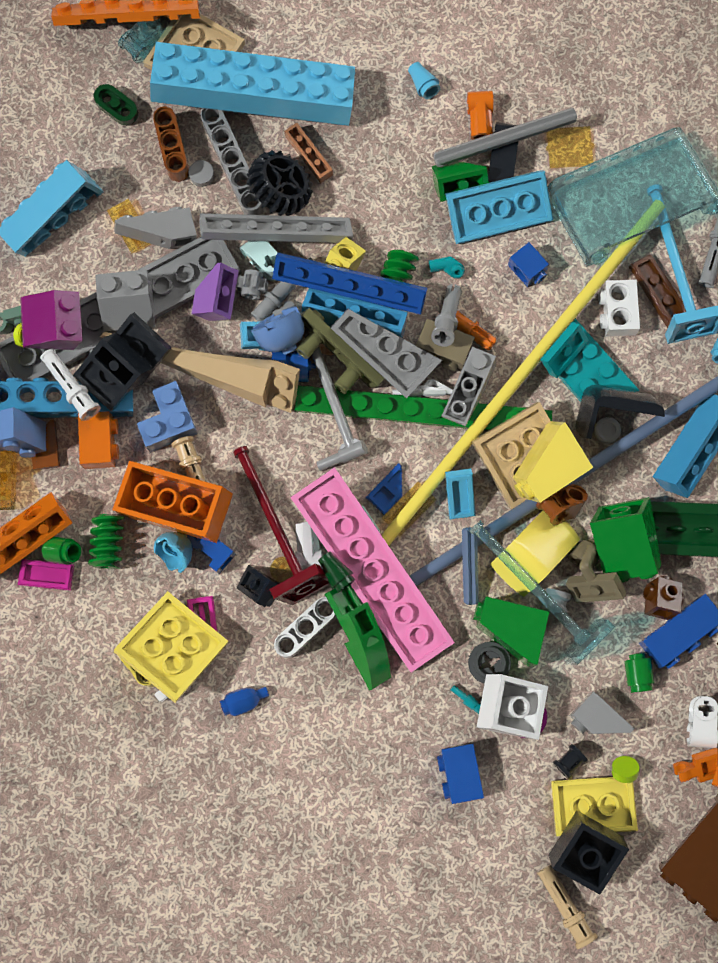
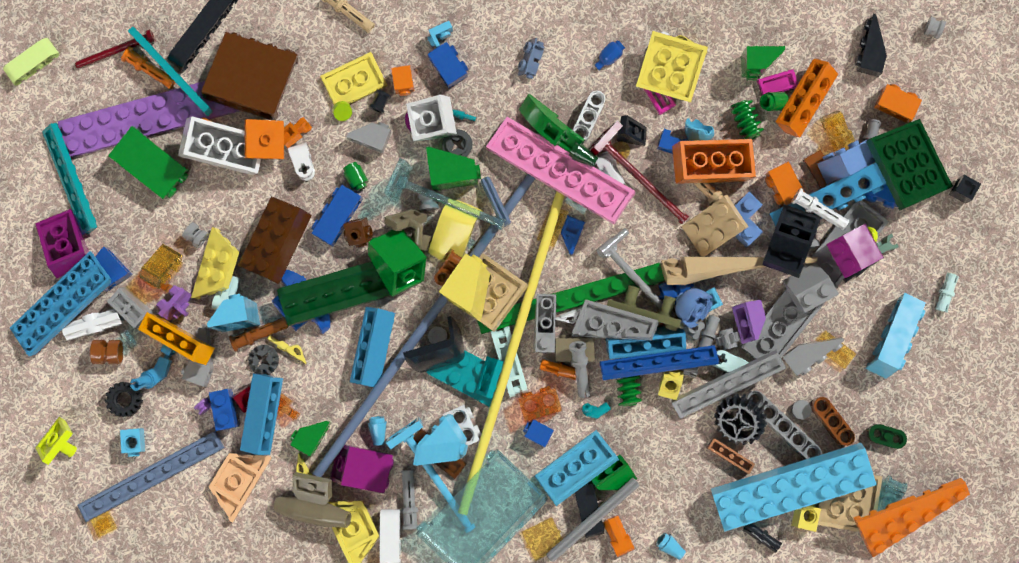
camera: 155 degrees right, 5 degrees up
(56, 606) = (758, 59): none -> green slope
(207, 421) = (714, 226): none -> tan plate
(253, 43) = (809, 524): none -> light yellow brick
(311, 50) = (762, 537): none -> black pin
(341, 748) = (532, 51): none -> sand blue hinge
(451, 823) = (441, 31): none -> medium azure bracket
(460, 493) = (521, 247): medium azure tile -> none
(513, 290) = (541, 409): none -> clear orange brick
(529, 777) = (403, 80): none -> orange brick
(535, 378) = (516, 372): none -> light aqua plate
(588, 852) = (347, 46): black brick -> none
(657, 280) = (443, 444): none -> medium azure wedge

